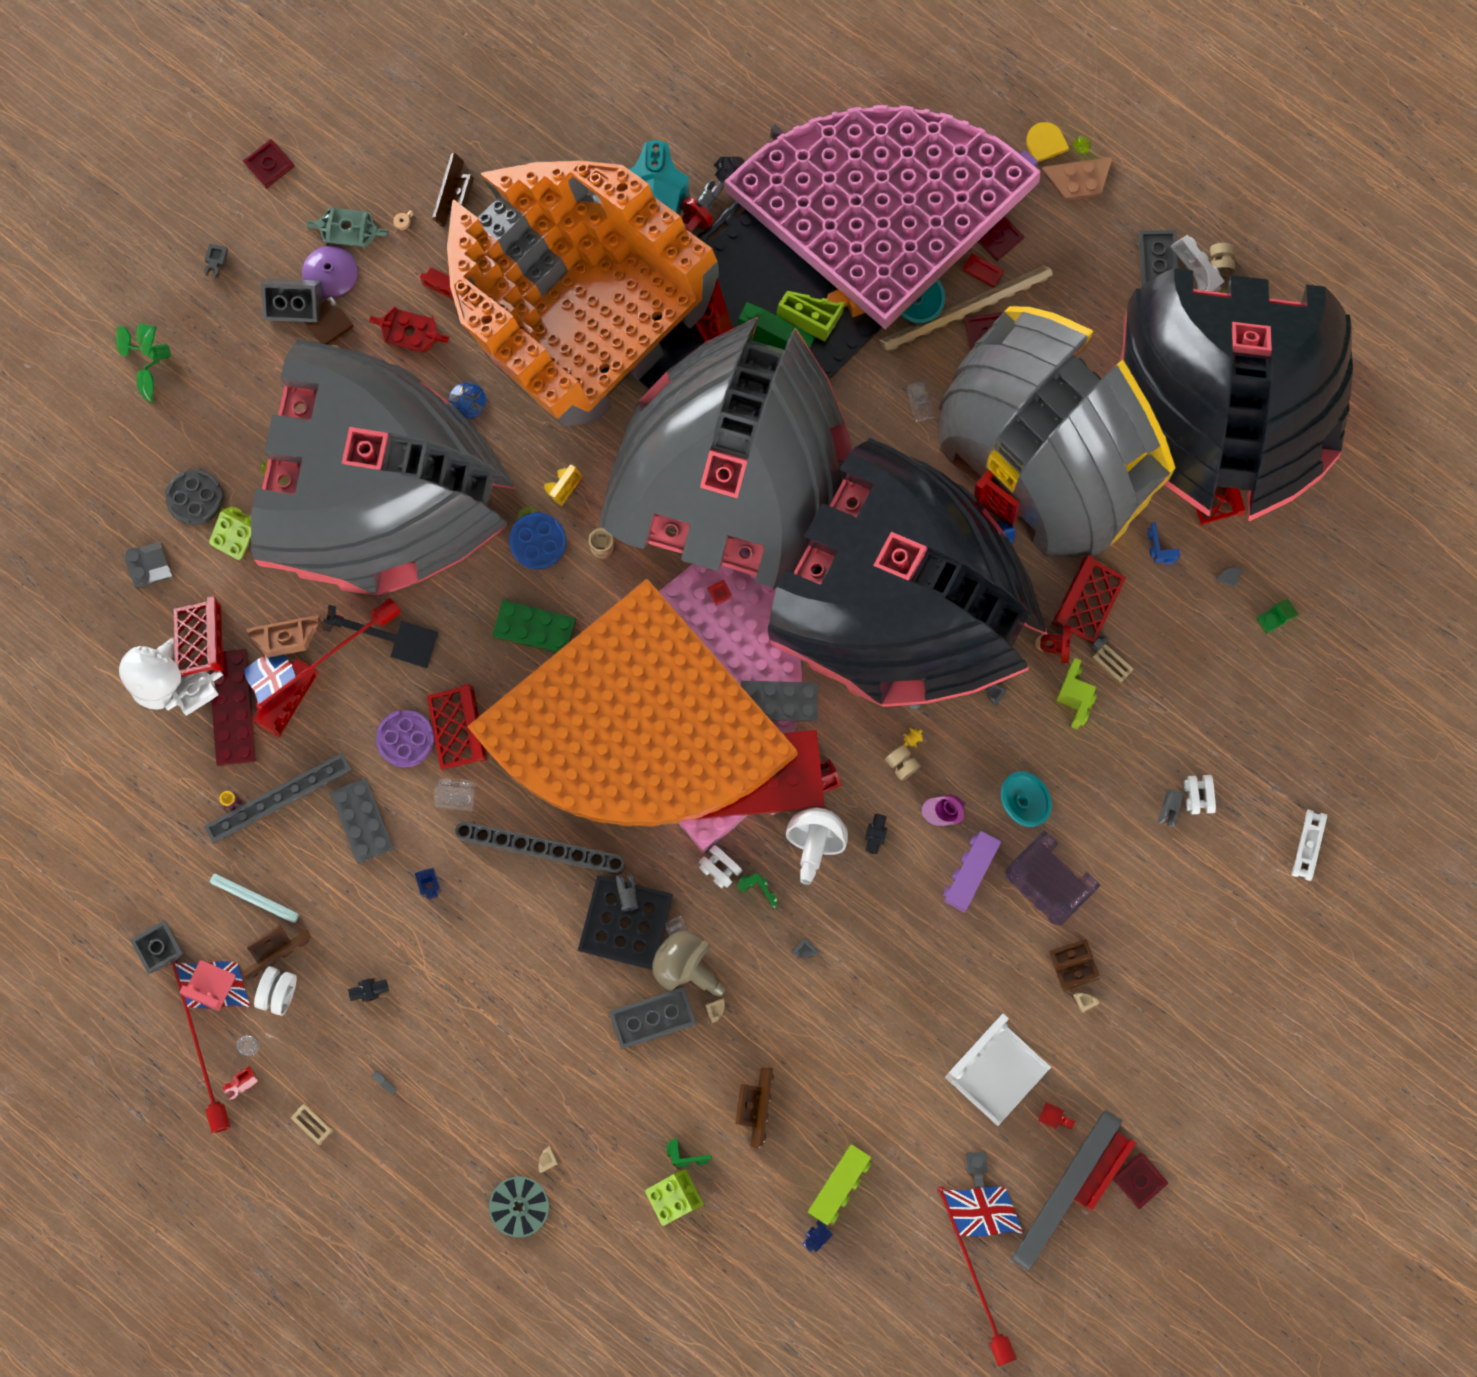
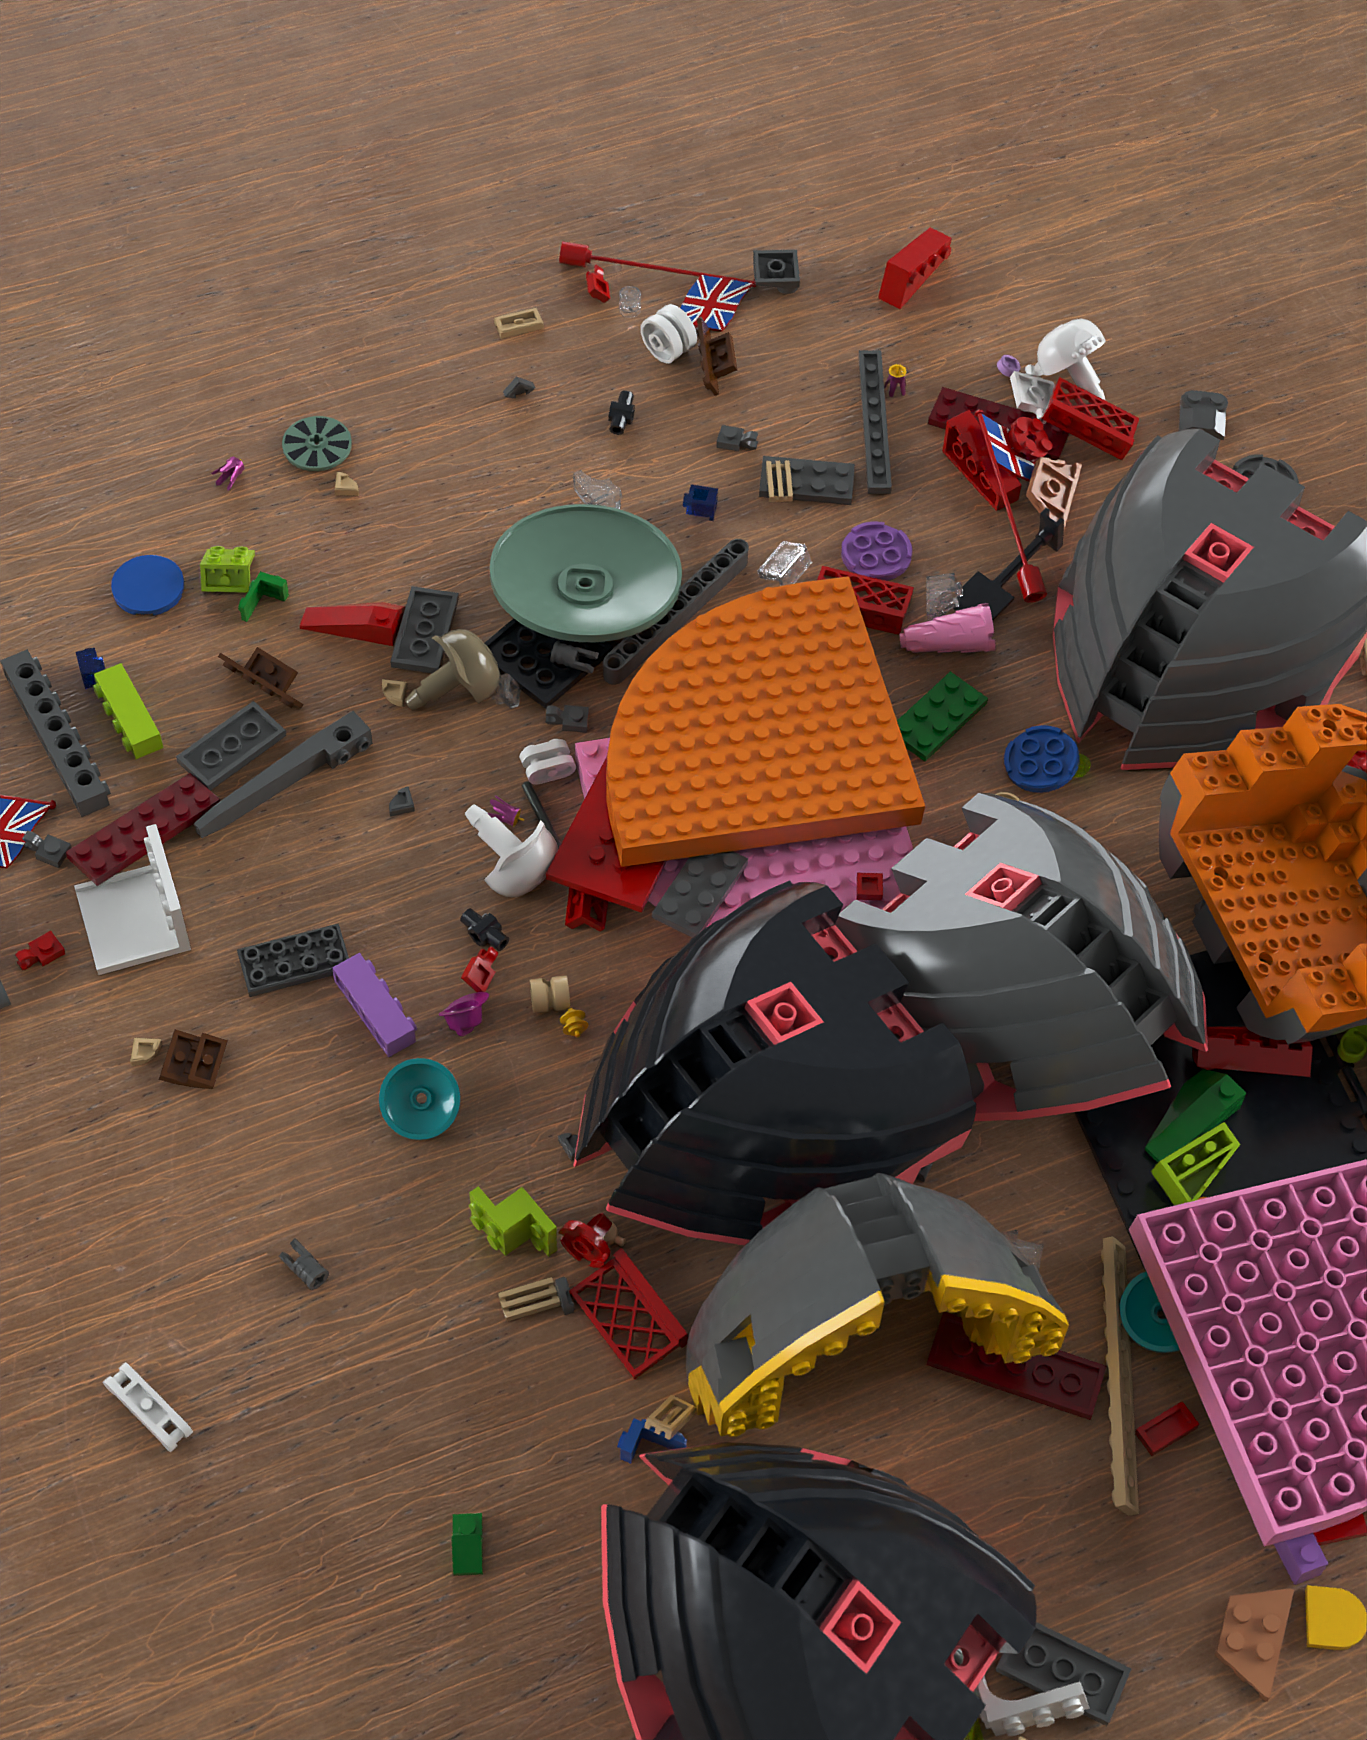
camera: 115 degrees right, 20 degrees down
(96, 841) = (913, 266): none -> red wedge
(168, 725) = (1008, 365): none -> lavender tile
(209, 985) = (707, 289): coral bracket -> none
(241, 670) = (1038, 443): none -> red plate
(254, 898) = (779, 365): light aqua axle -> none
(349, 895) = (734, 438): none -> dark grey plate
(367, 841) = (778, 467): none -> tan tile
(428, 670) = (942, 594): none -> clear arch
(459, 643) = (962, 631): none -> bright pink cone
(462, 962) = (596, 491): none -> clear arch
(514, 918) = (556, 550): none -> sand green dish
(569, 479) = (1097, 814): yellow tile -> none
(584, 1254) = (233, 467): none -> flat silver piece
(665, 1069) = (364, 621): none -> red wedge
(671, 873) = (572, 718): none -> dark grey plate
(720, 1248) = (147, 585): none -> blue tile
(747, 882) = (503, 789): green bracket -> none
(767, 844) = (539, 810): none -> pearl dark grey bar
(777, 872) = (509, 813): none -> flat silver piece
(795, 1028) = (316, 751): none -> dark grey piece
(826, 1093) = (231, 745): none -> dark grey plate
(910, 818) = (479, 971): none -> red plate
(927, 1108) = (123, 839): none -> dark red plate
(927, 1167) = (55, 733): none -> dark grey brick
(965, 946) = (292, 959): none -> dark grey tile
(1001, 239) = (1207, 1477): dark red tile -> none
(1049, 881) = (307, 1081): clear purple windscreen -> none
(1082, 144) = (1306, 1664): clear neon green plate -> none
(1156, 531) = (660, 1426): none -> tan tile
(1193, 802) = (293, 1294): white brick -> none
(1230, 576) = (557, 1512): dark grey tile -> none

